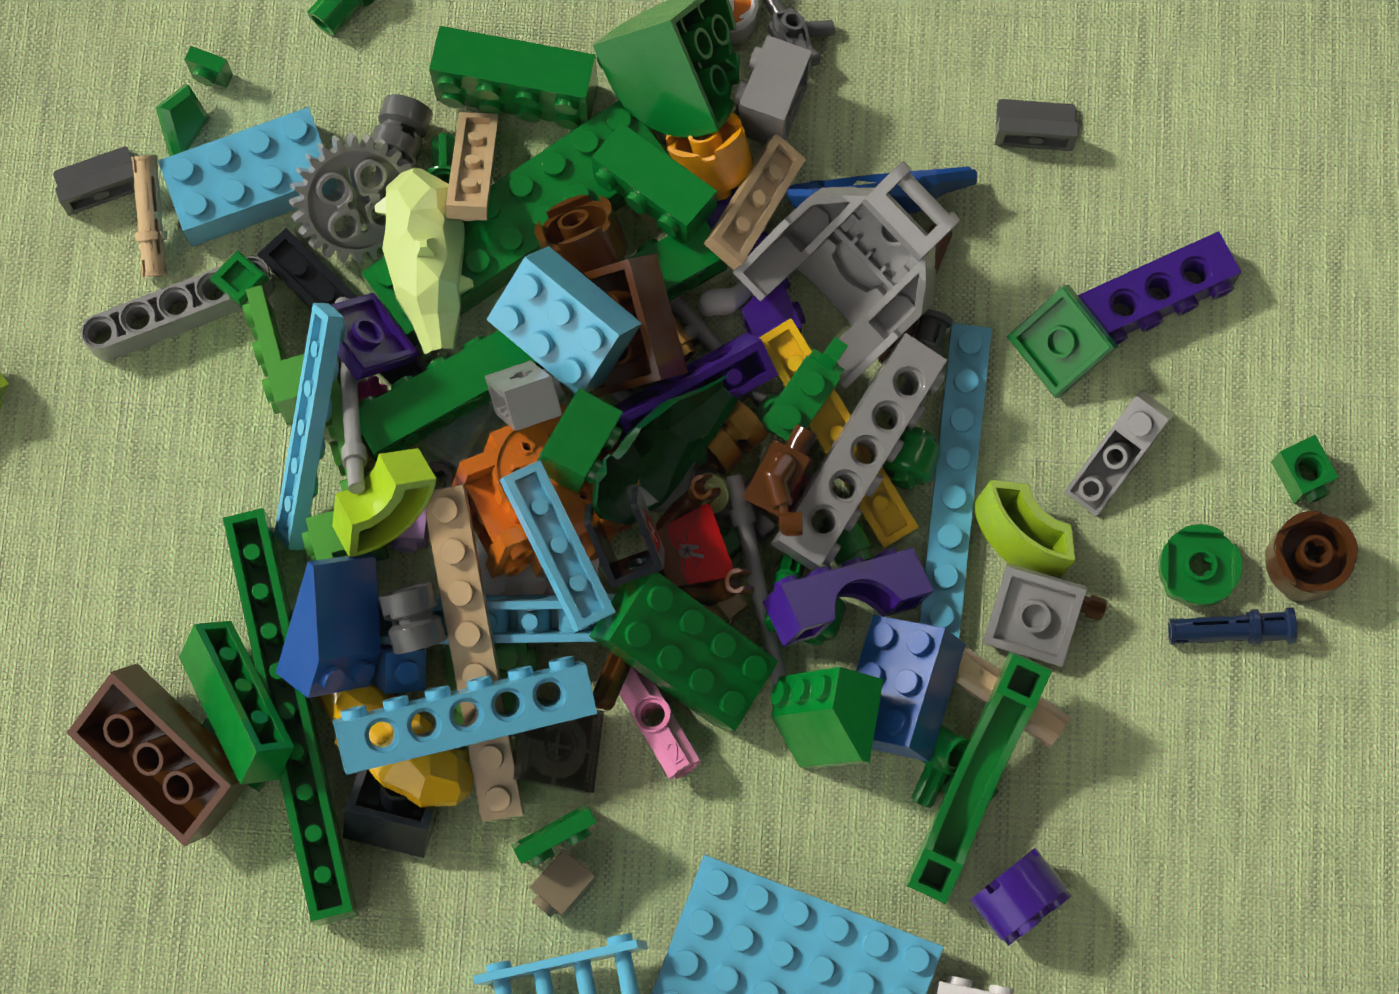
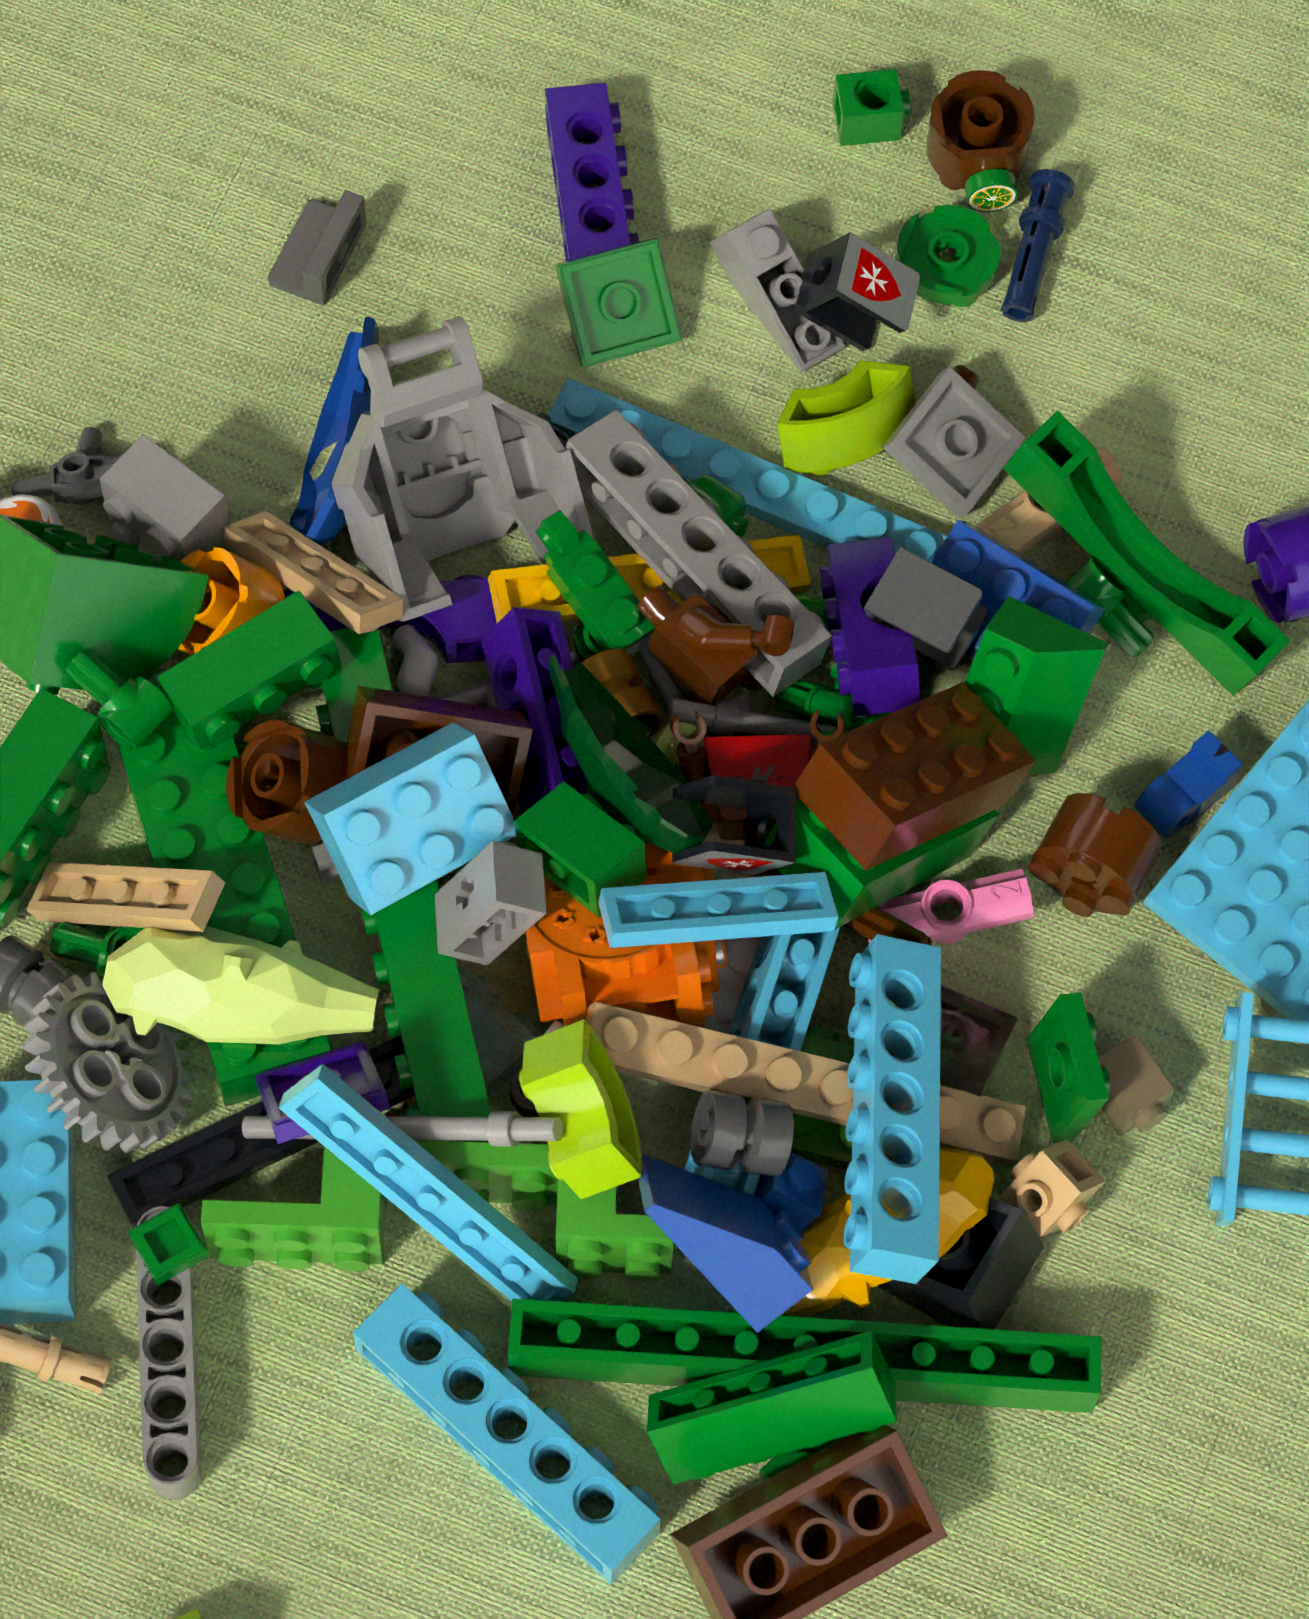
camera: 75 degrees left, 10 degrees down
(222, 444) = (603, 1543): none -> medium azure brick
(463, 850) = (1053, 1187): none -> tan brick
(601, 116) = (129, 708): none -> green axle
(714, 652) = (913, 775): none -> reddish brown brick
(724, 809) = (1096, 856): none -> reddish brown brick
(812, 864) = (1189, 786): none -> blue leg
(862, 626) = (930, 606): none -> dark grey piece
(1130, 506) = (852, 287): none -> piece
(1267, 581) = (991, 190): none -> green tile

